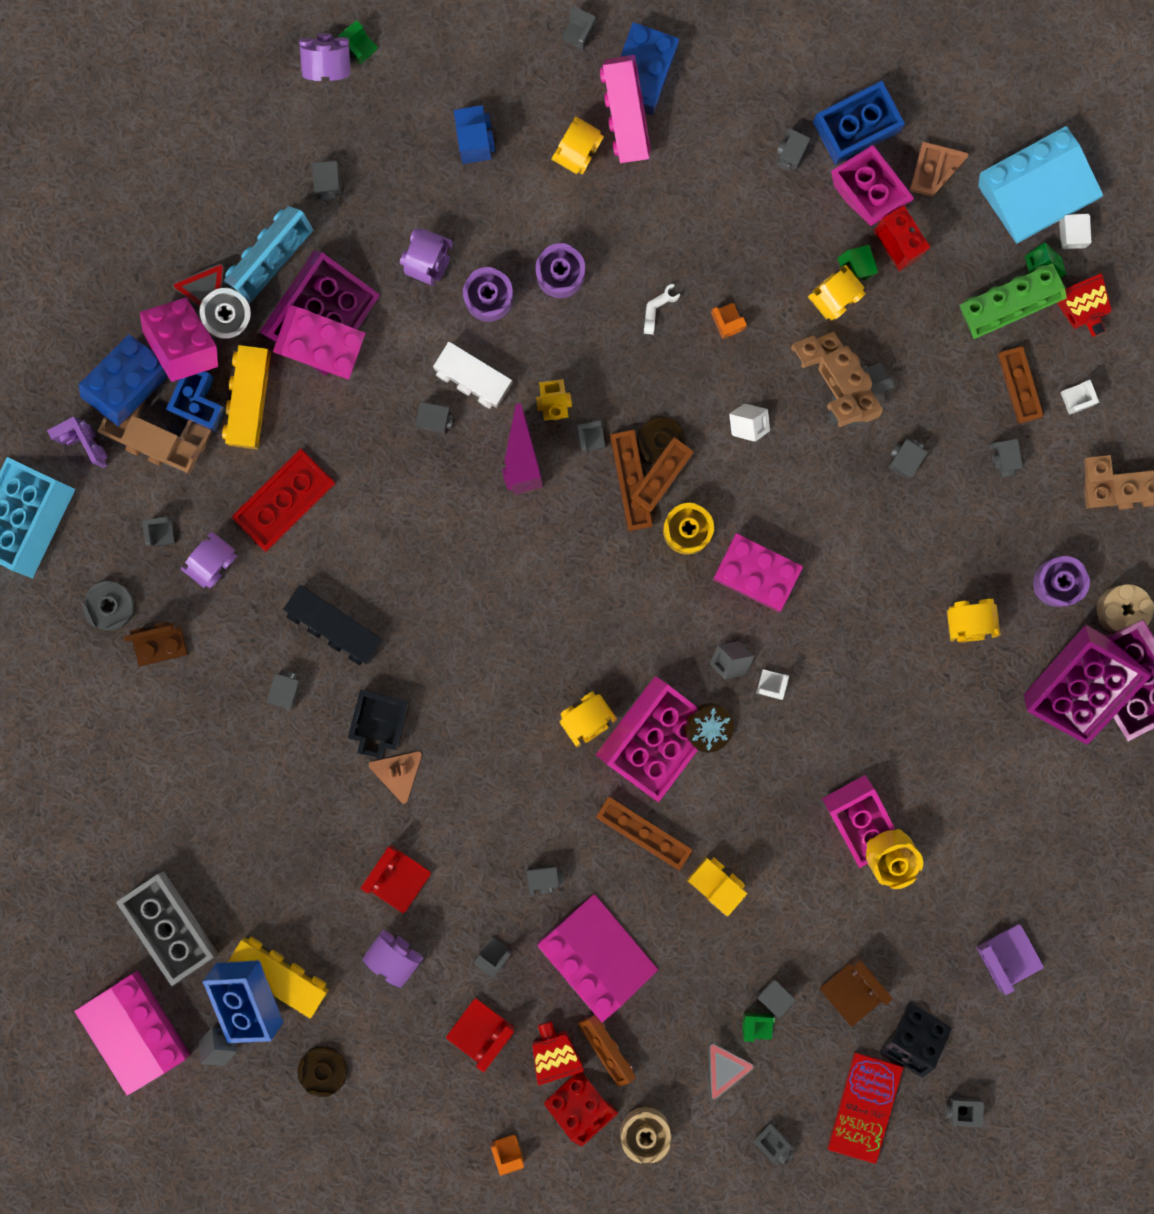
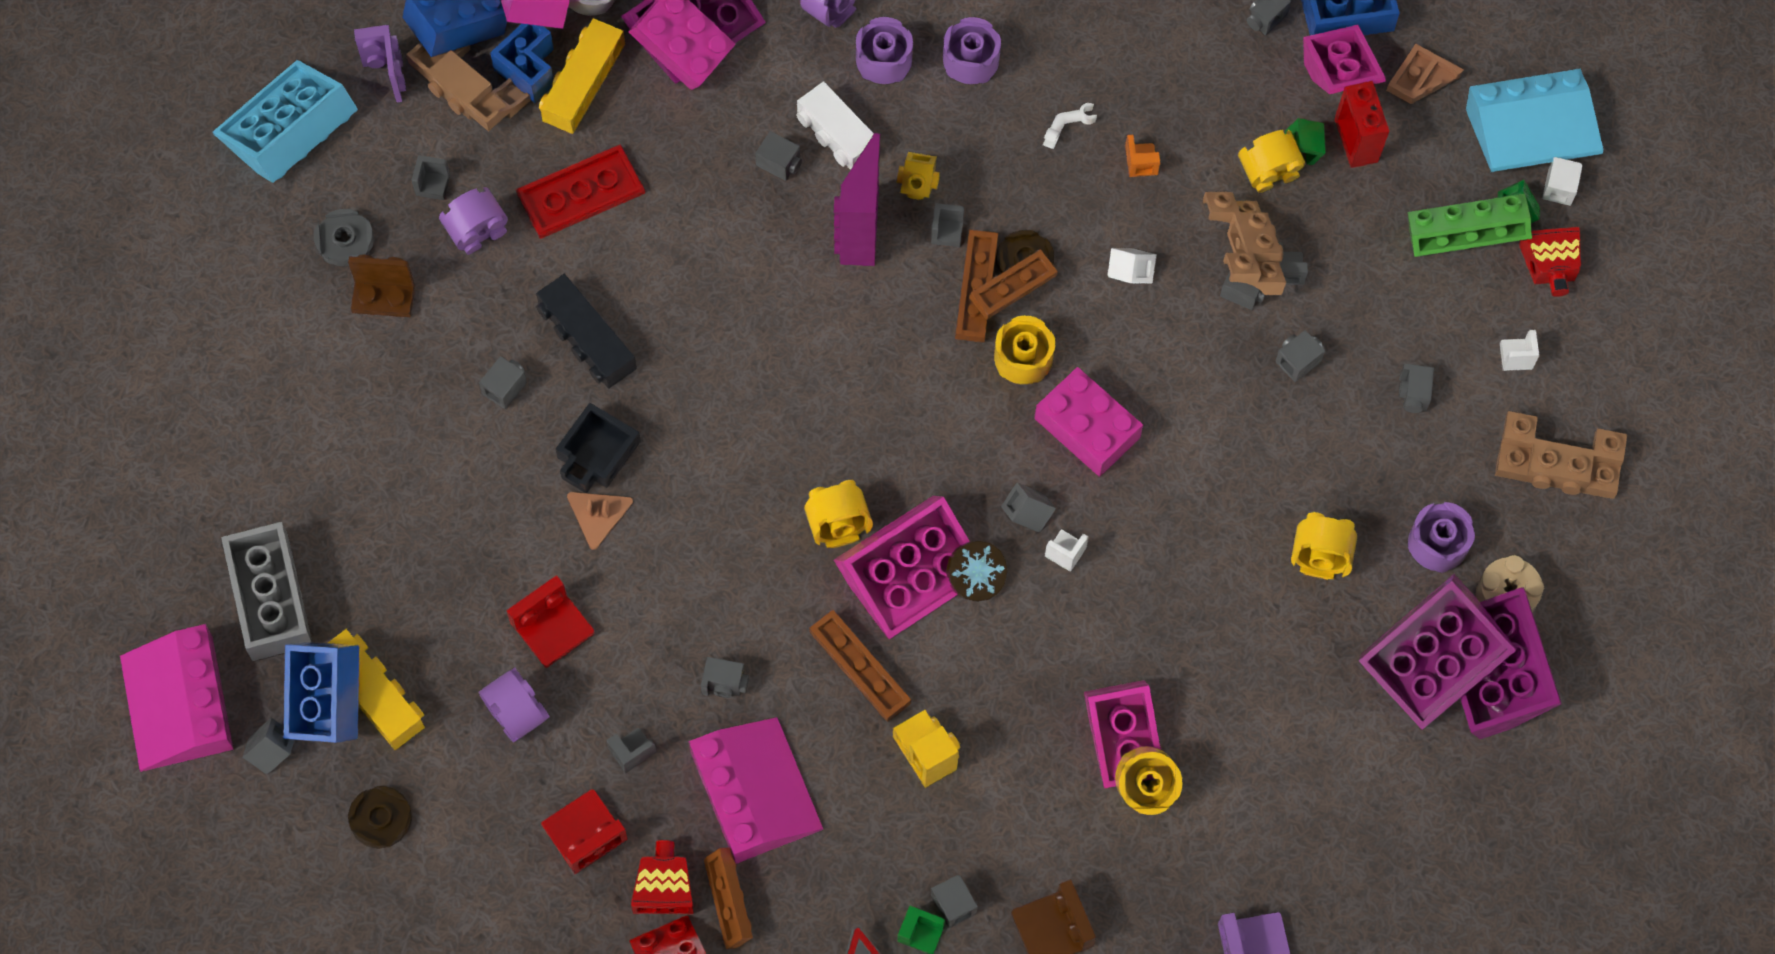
camera: 15 degrees right, 20 degrees down
(1020, 385) = (1454, 319): dark orange plate -> none

